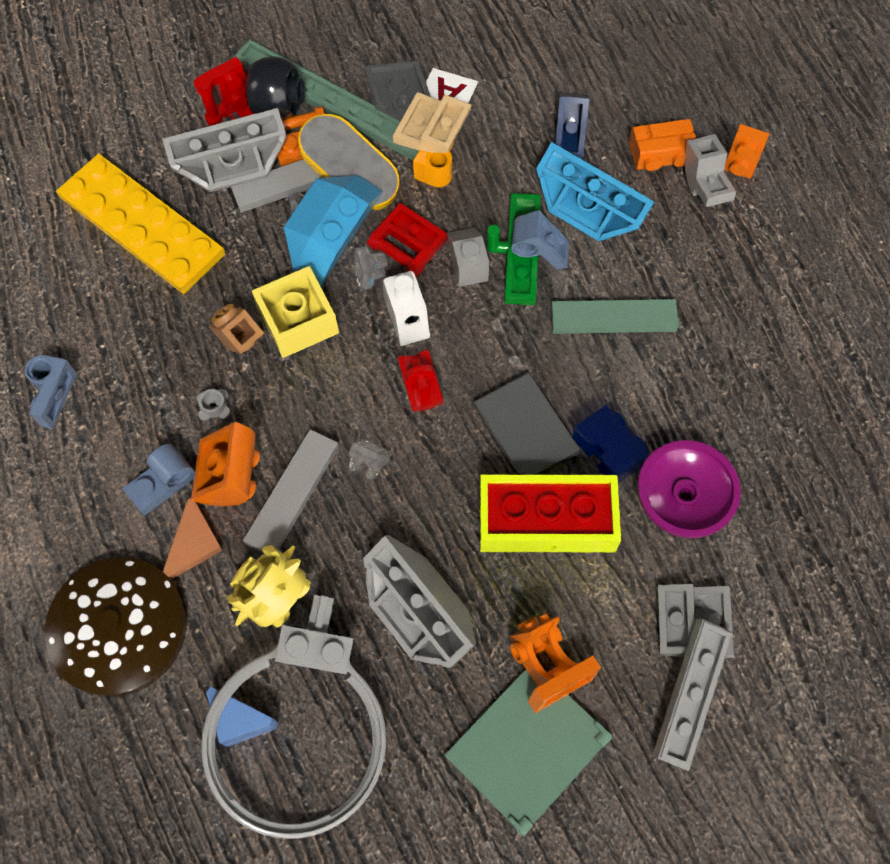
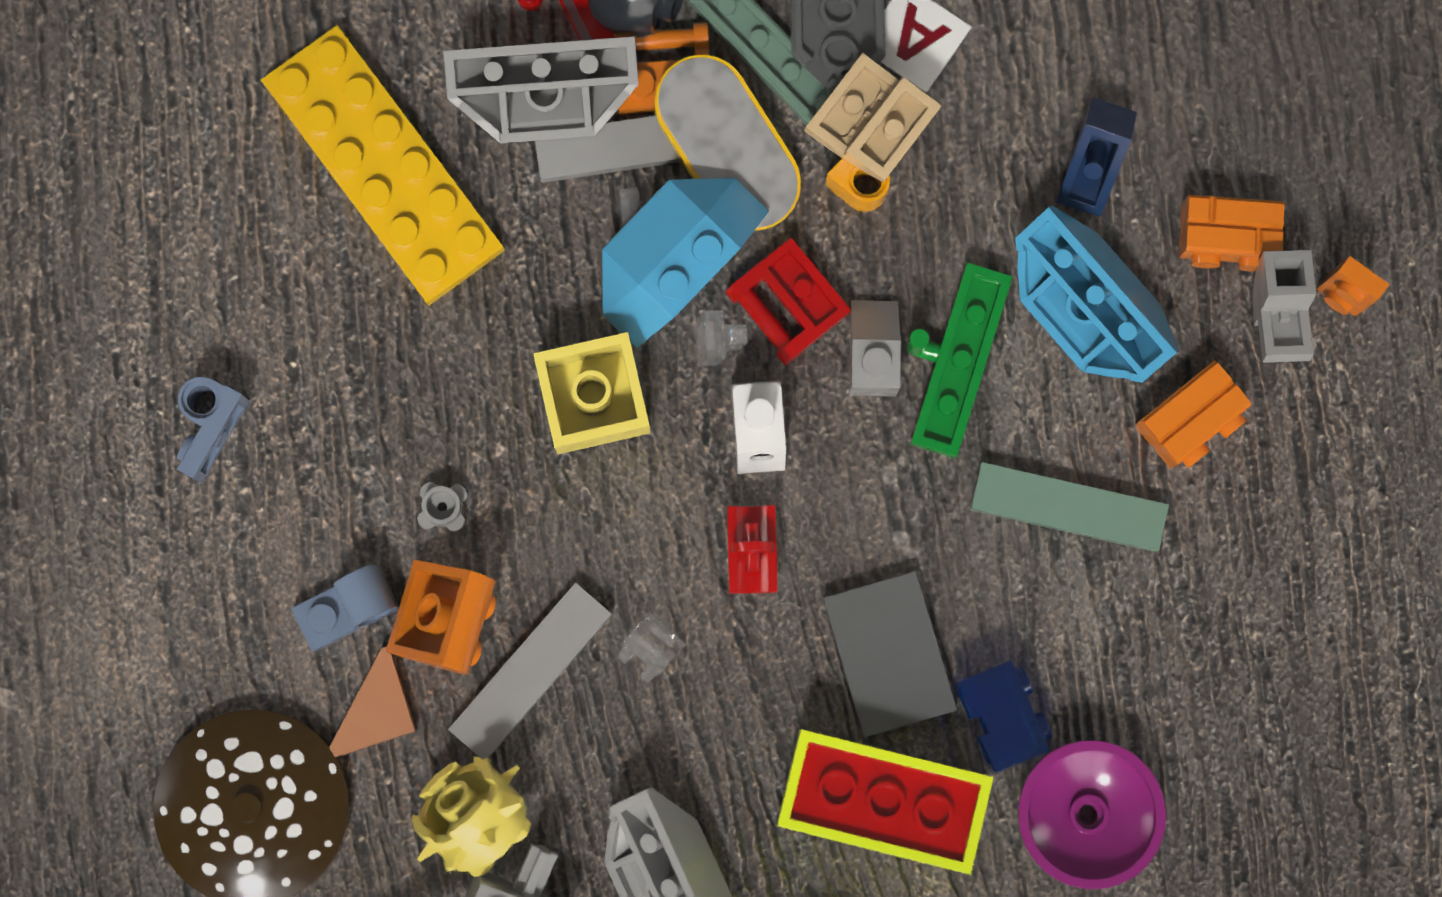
camera: 10 degrees right, 15 degrees up
(235, 328) = (497, 400): medium nougat brick -> none
(538, 236) = (988, 361): sand blue plate -> none
(674, 245) = (1194, 415): none -> orange brick

